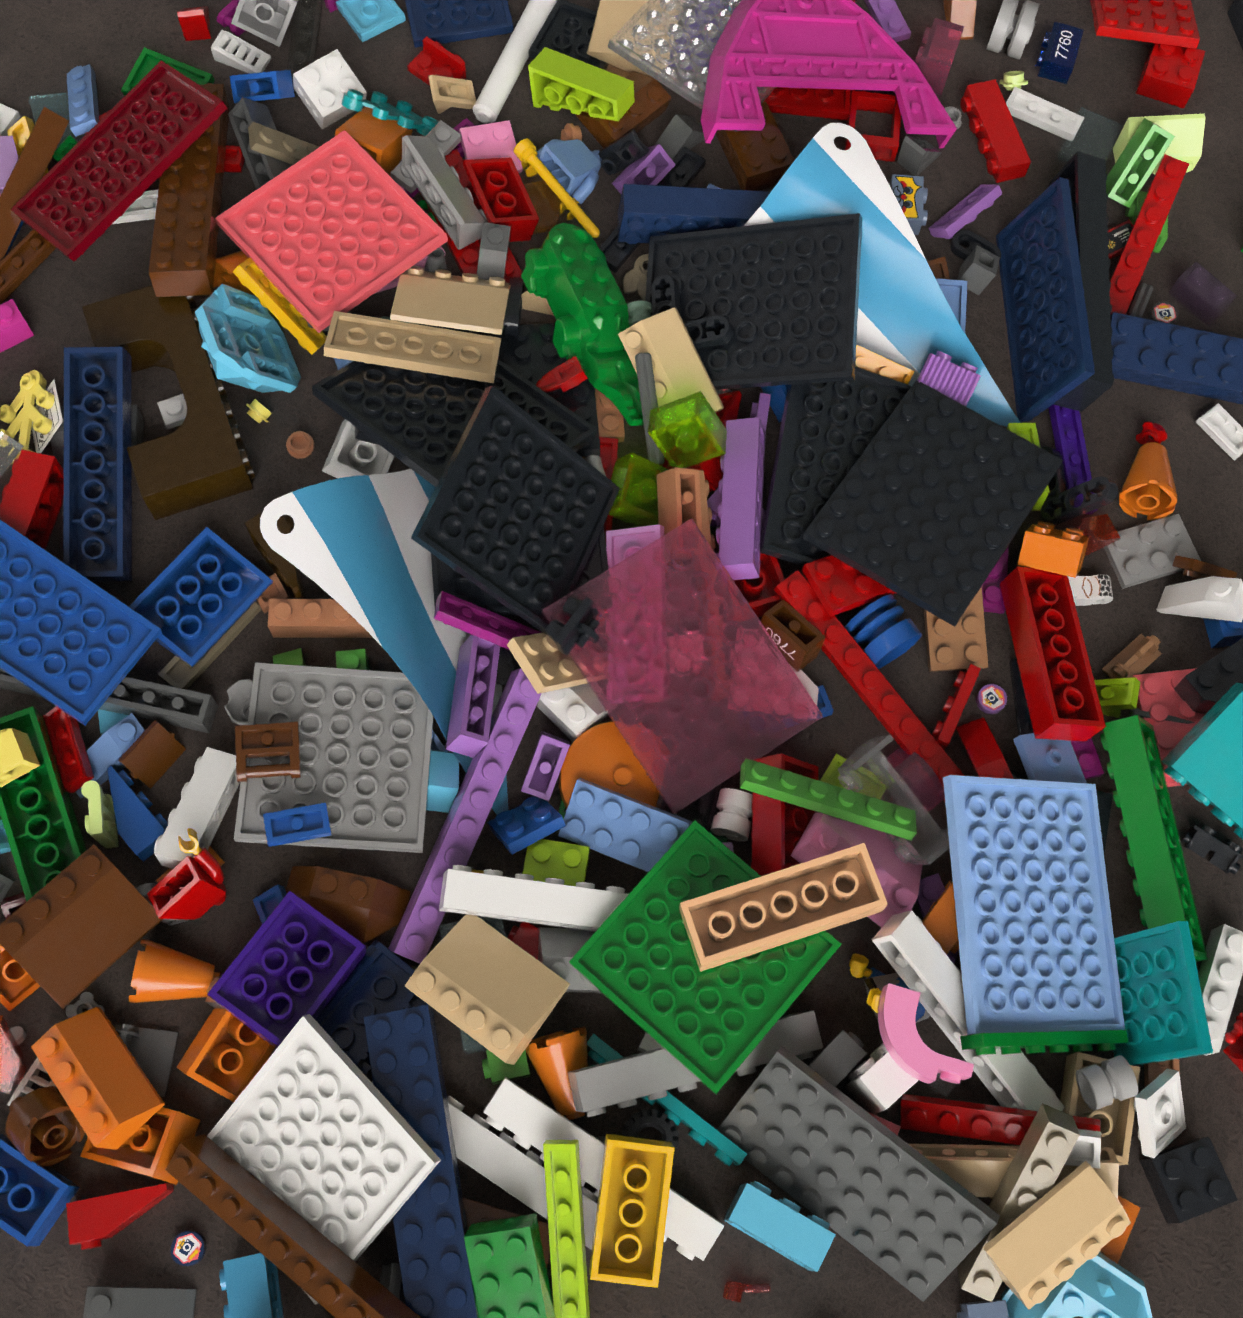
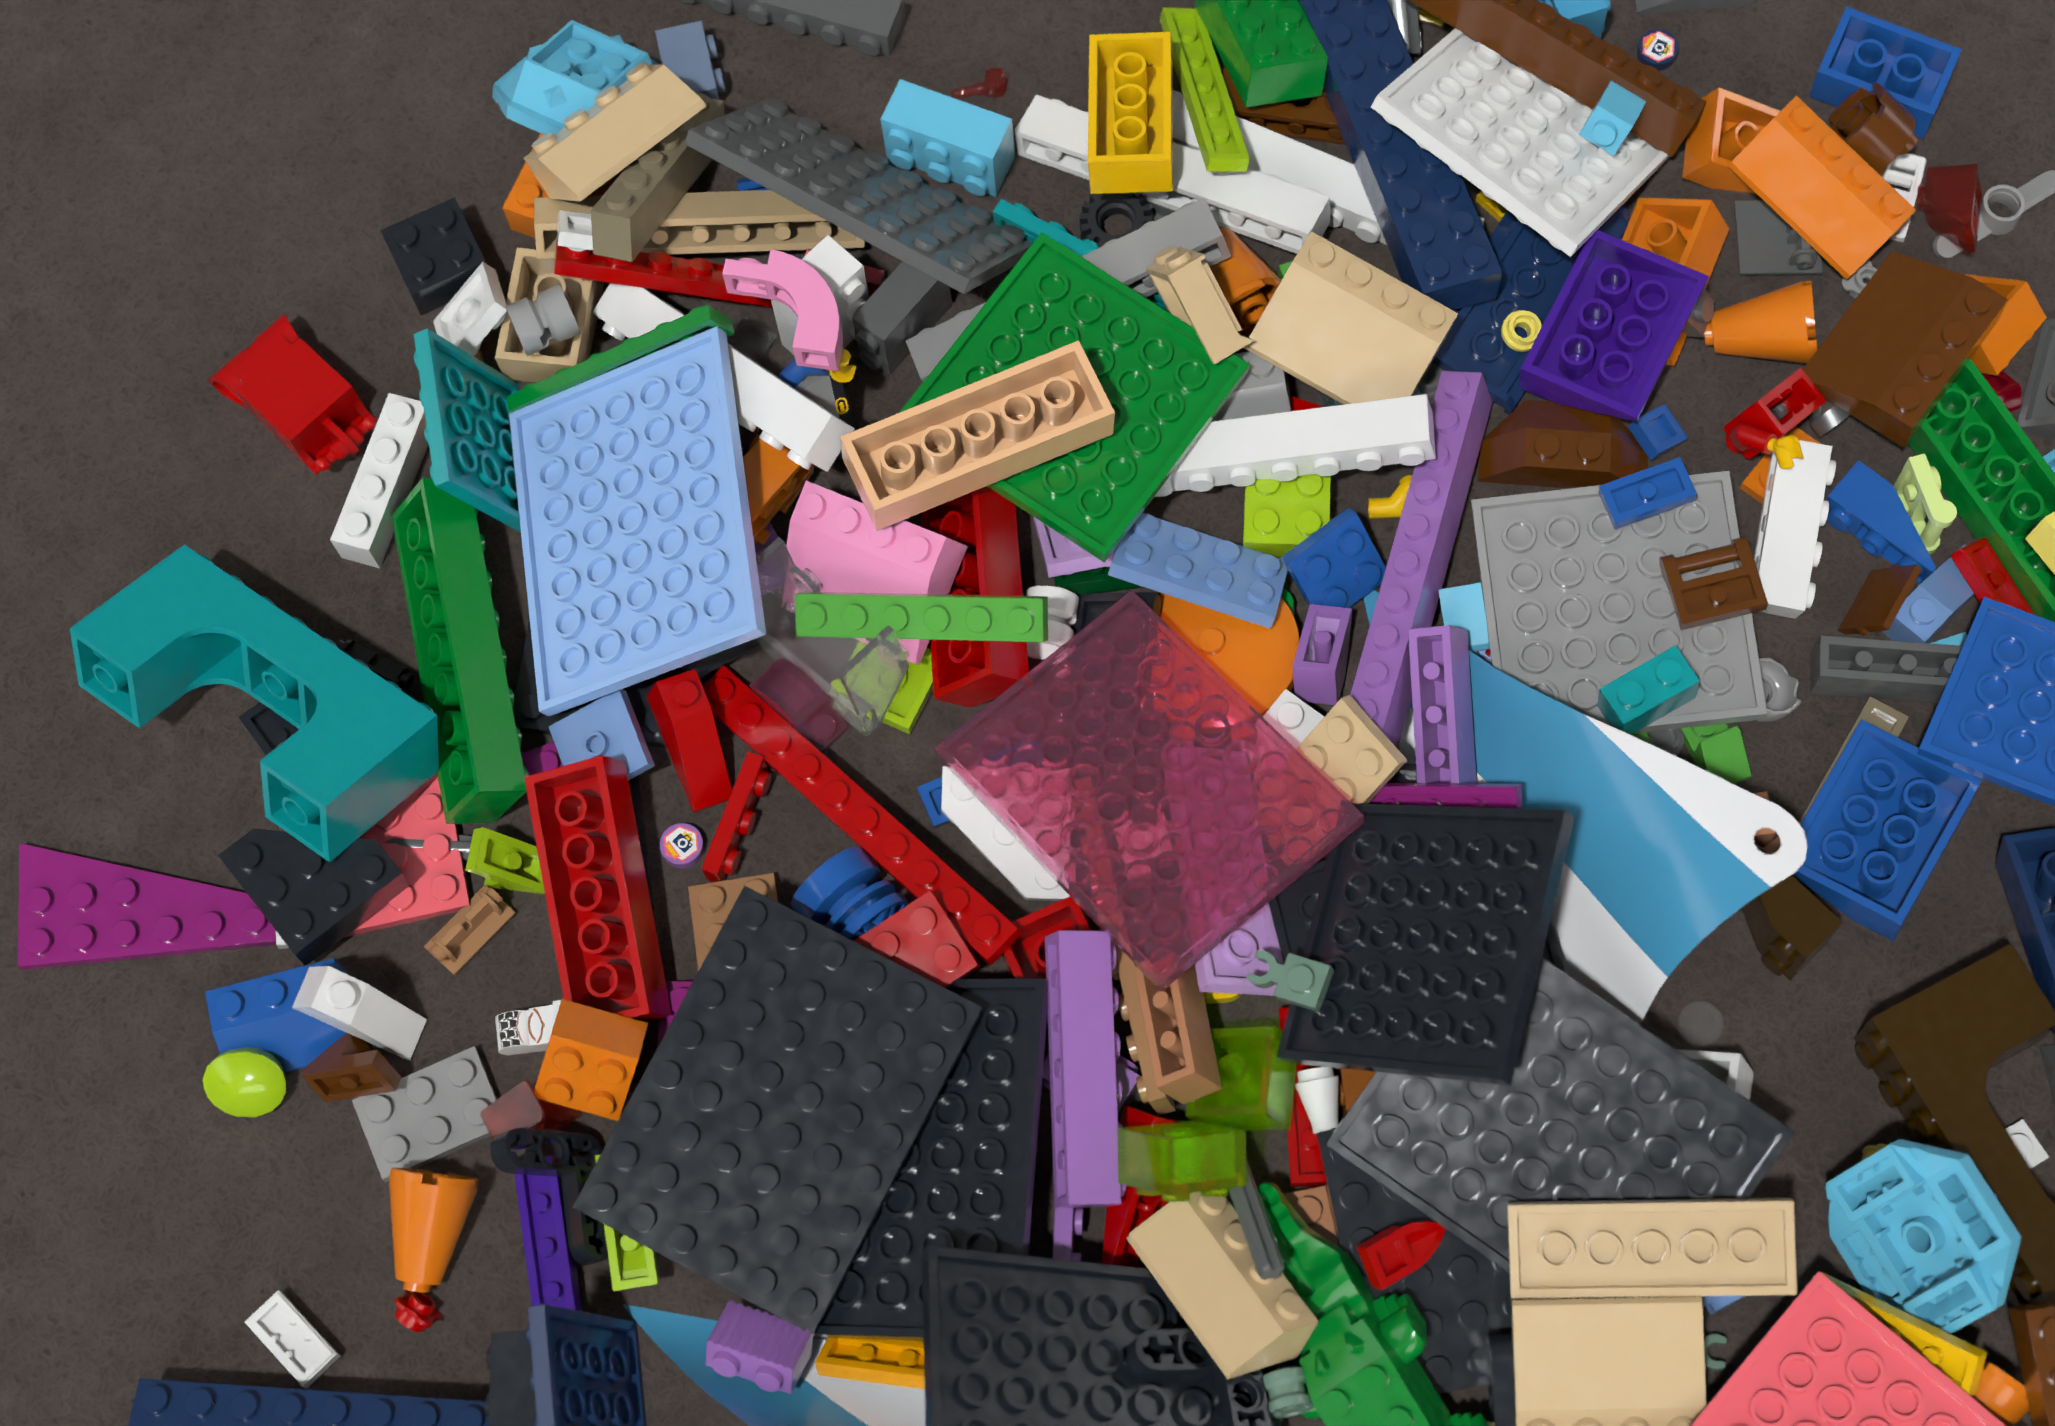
camera: 175 degrees left, 0 degrees up
(109, 1214) = (1767, 64): red slope -> none
(244, 1156) = (1612, 118): none -> medium azure brick
(300, 445) = (1801, 1115): nougat plate -> none
(333, 678) = (1648, 692): none -> teal brick
(352, 982) = (1525, 320): none -> light yellow plate
(578, 628) = (1324, 773): black hips -> none
(600, 518) = (1297, 981): none -> sand green plate
(601, 1013) = (1197, 300): none -> tan window
(793, 634) = (989, 870): reddish brown brick -> none

